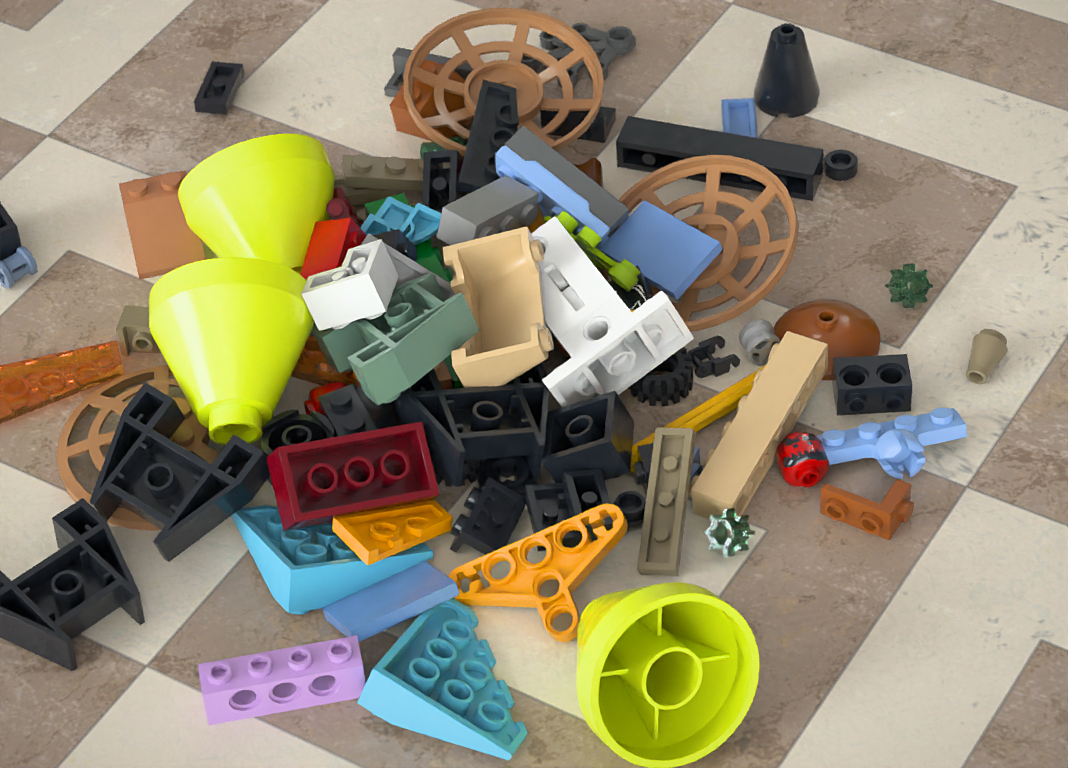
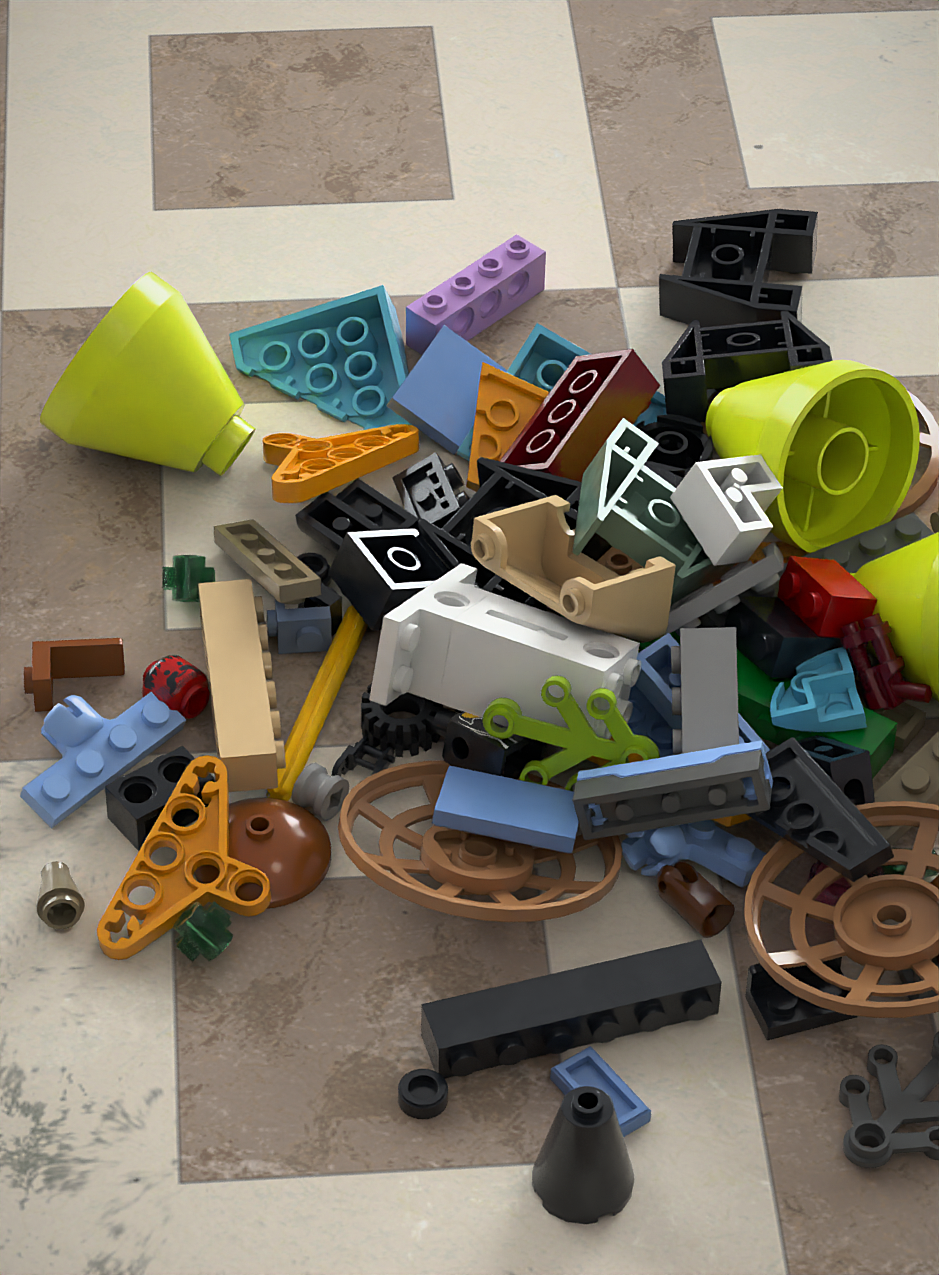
camera: 140 degrees right, 0 degrees up
(895, 322) = (174, 885): none -> light orange beam

